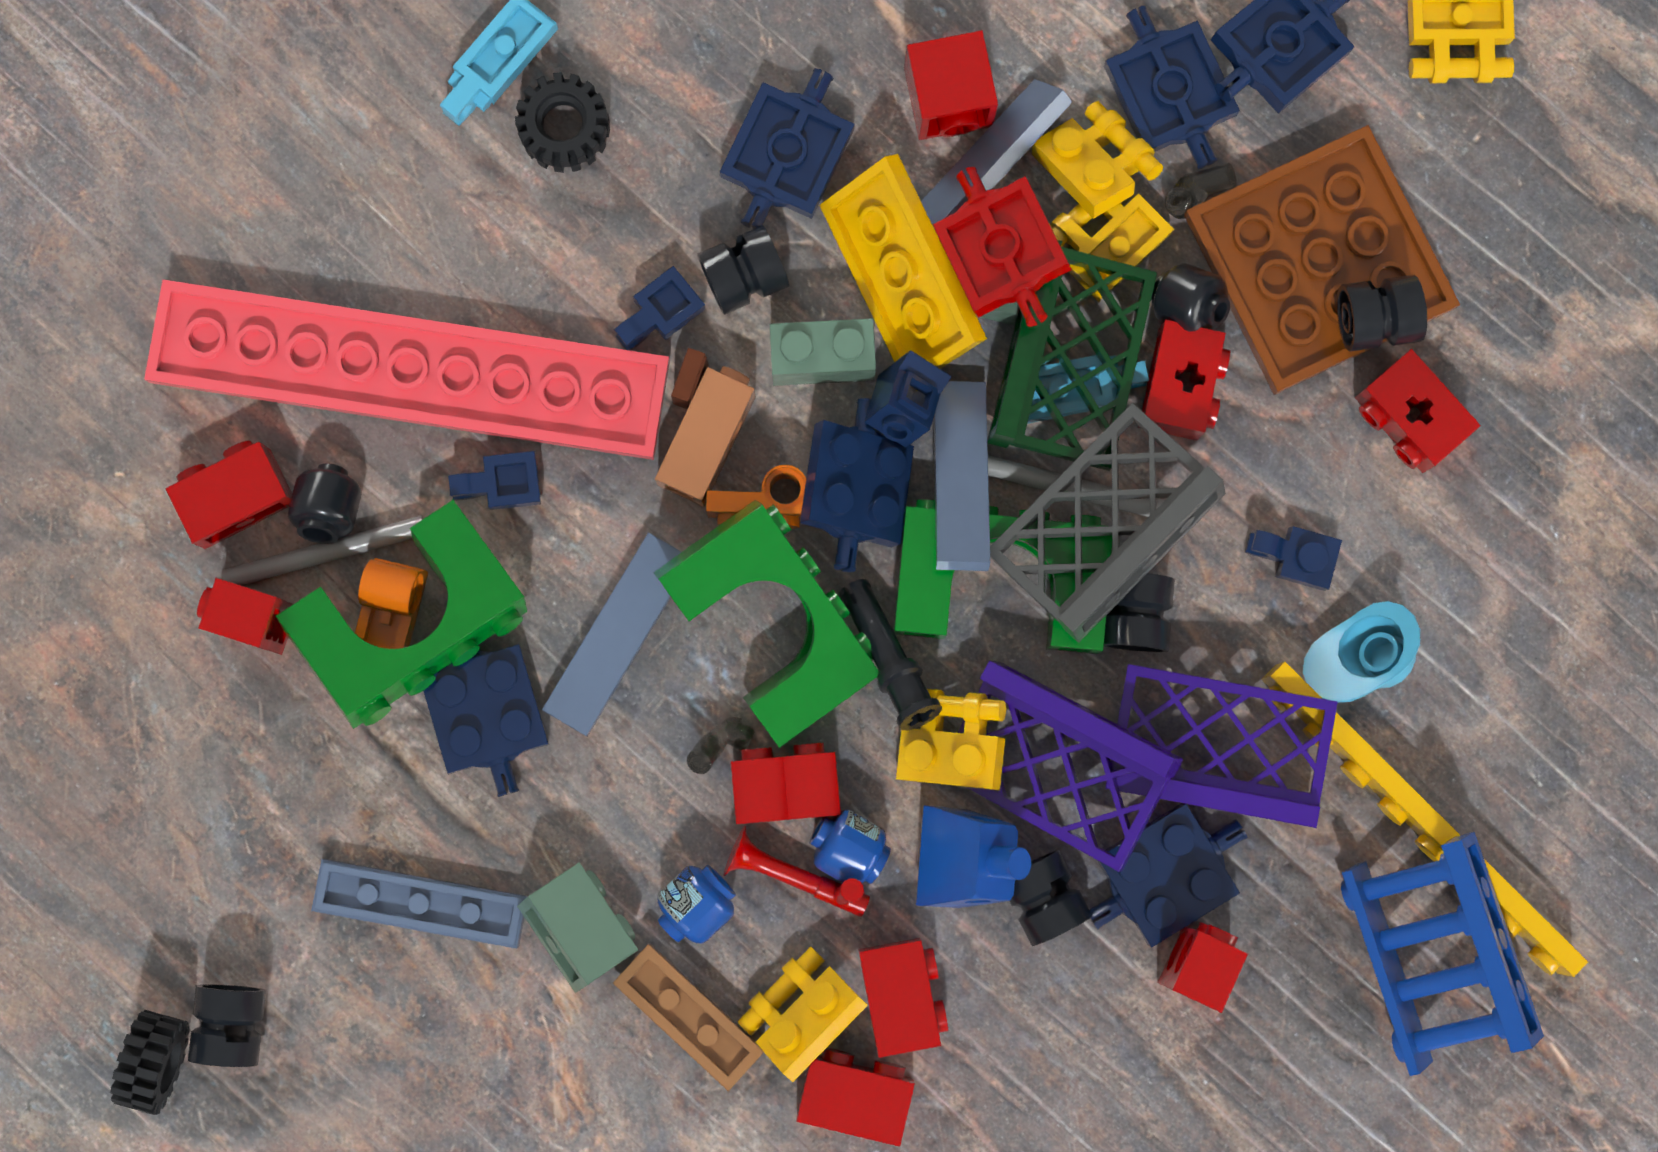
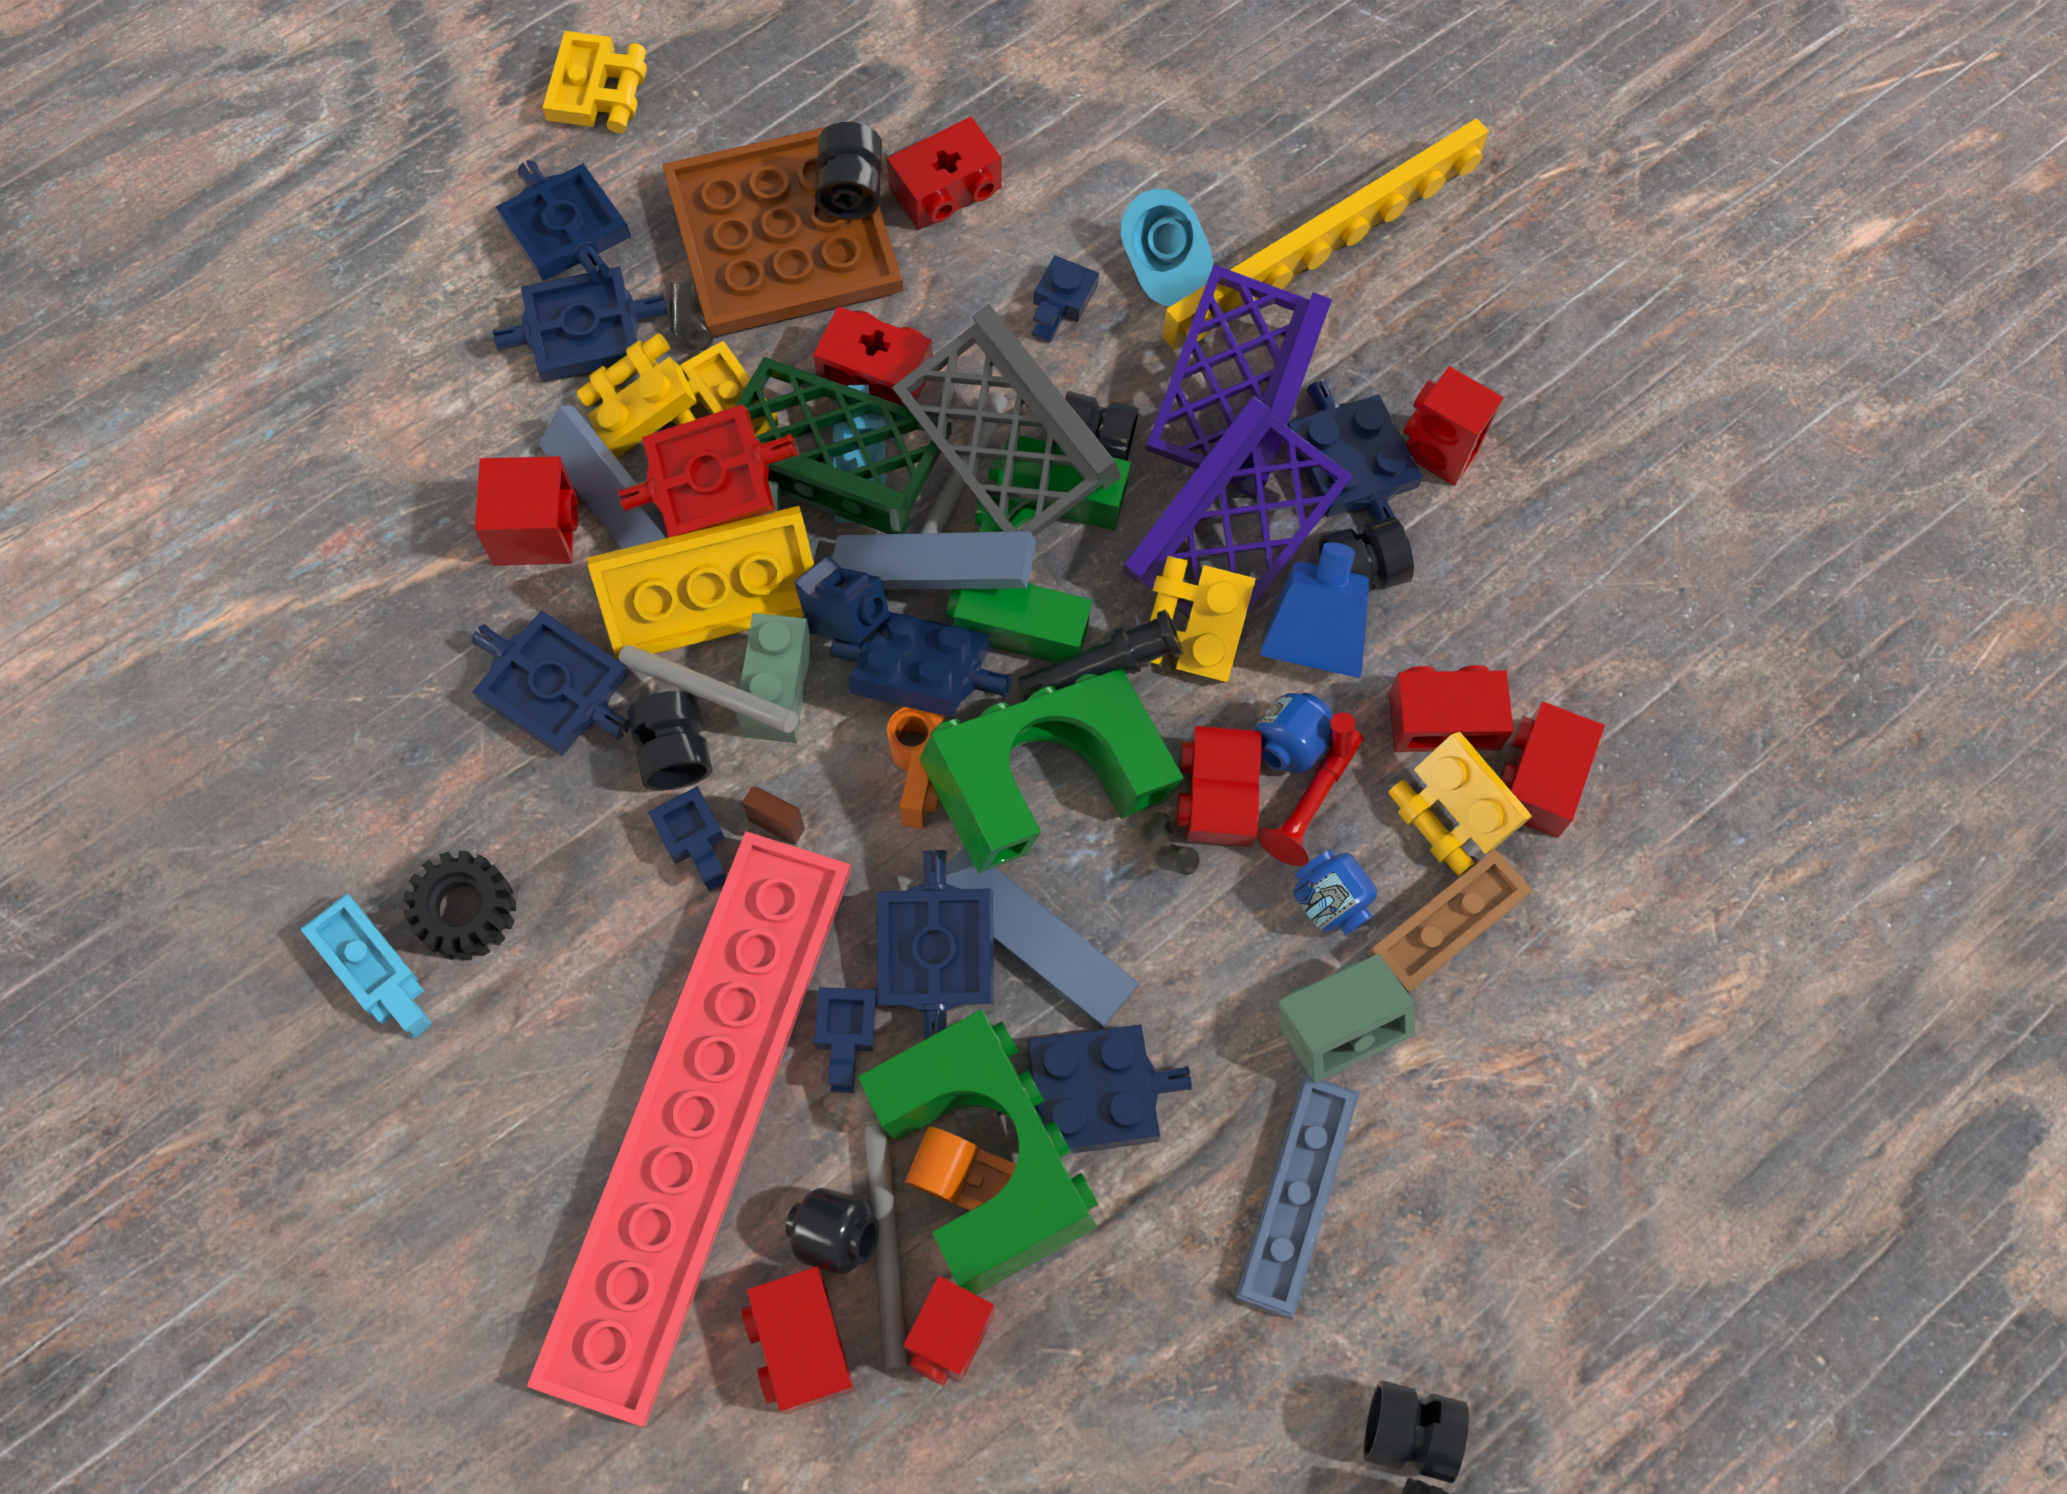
camera: 80 degrees left, 15 degrees down
(586, 547) = (935, 946): none -> dark blue plate
(706, 434) = (840, 807): nougat brick -> none
(789, 294) = (709, 688): none -> light grey bar
(1191, 298) = (795, 332): black head -> none
(1477, 917) = (1430, 188): blue fence -> none

